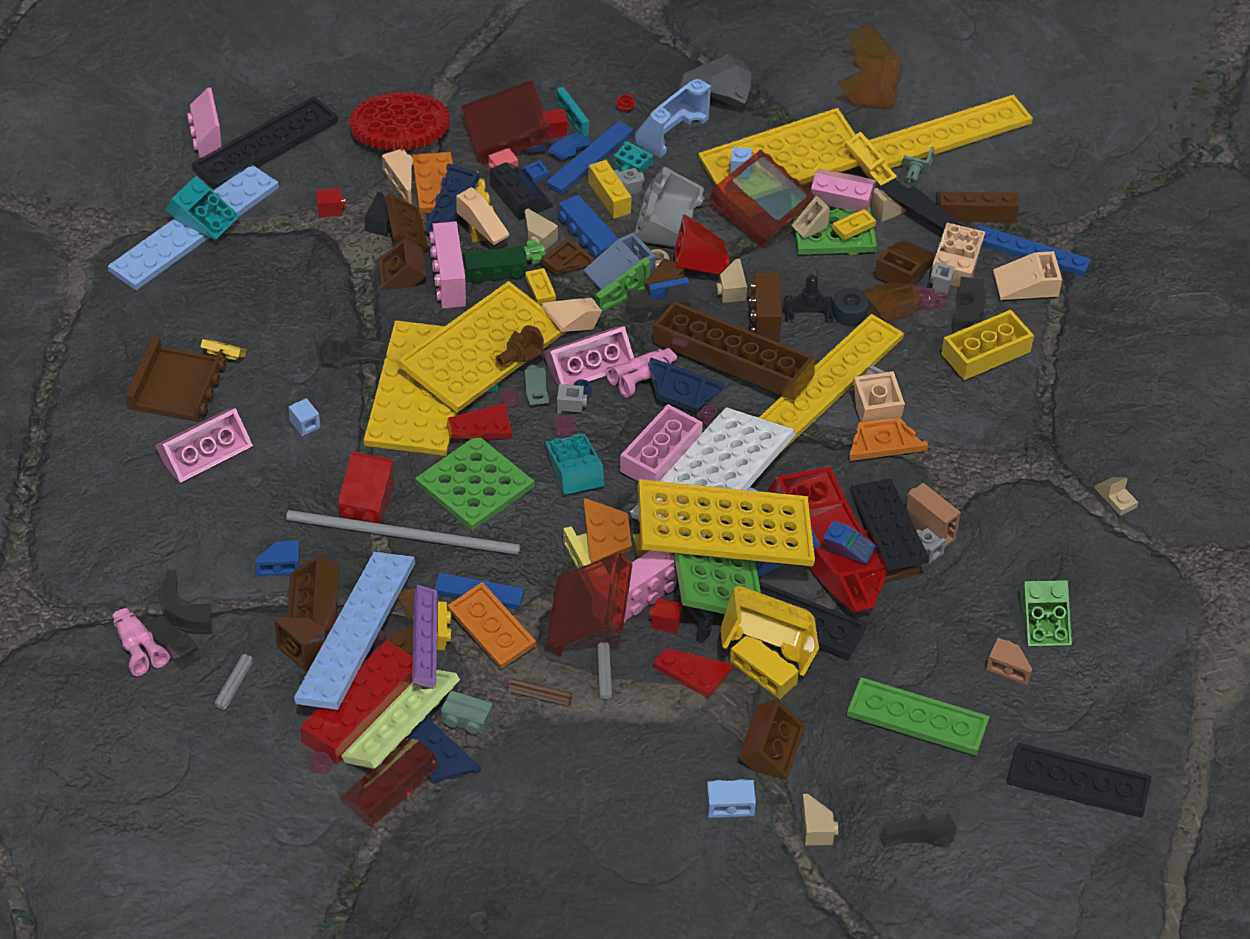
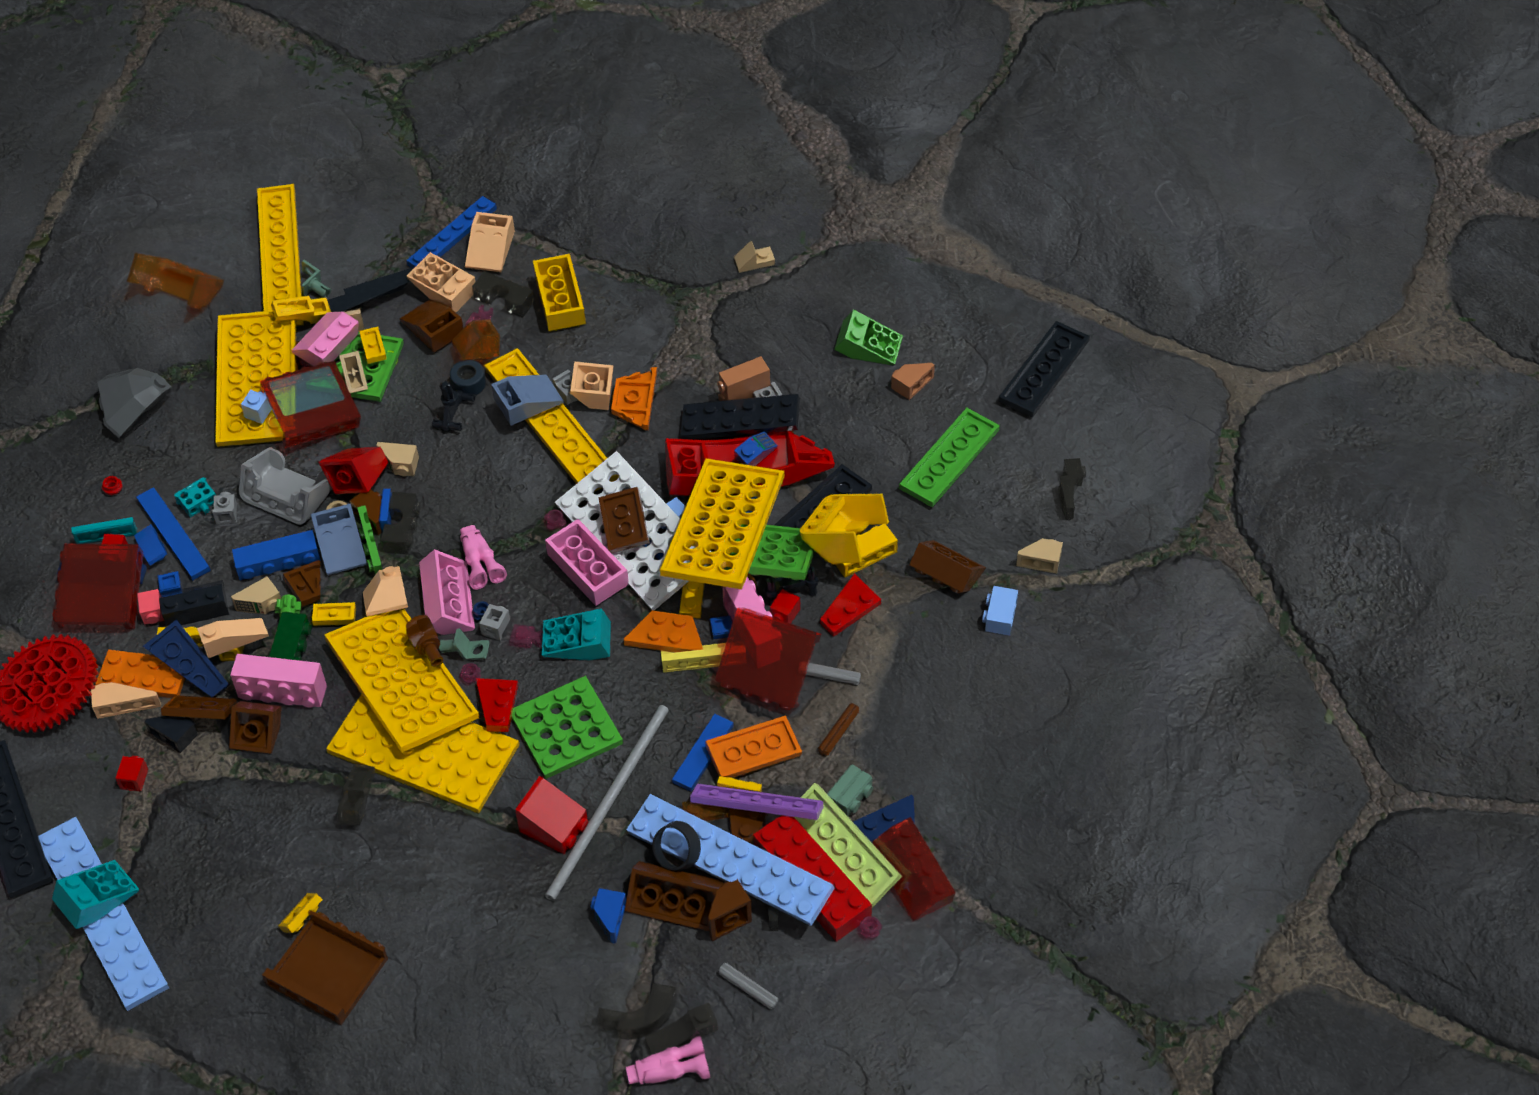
camera: 70 degrees left, 5 degrees up
(204, 445) = (428, 955): bright pink slope -> none
(304, 417) = (426, 856): light blue brick -> none
(353, 582) = (692, 840): none -> black tyre
(609, 189) = (230, 525): yellow brick -> none
(681, 386) = (515, 530): dark blue wing -> none
(685, 105) = (166, 463): light blue windscreen -> none
(712, 455) = (624, 520): none -> reddish brown plate
(734, 350) = (492, 475): reddish brown brick -> none
(766, 305) = (450, 437): reddish brown brick -> none
(837, 347) = (525, 396): none -> sand blue slope
(941, 277) = (465, 305): light grey brick -> none
(980, 206) = (382, 251): reddish brown slope -> none

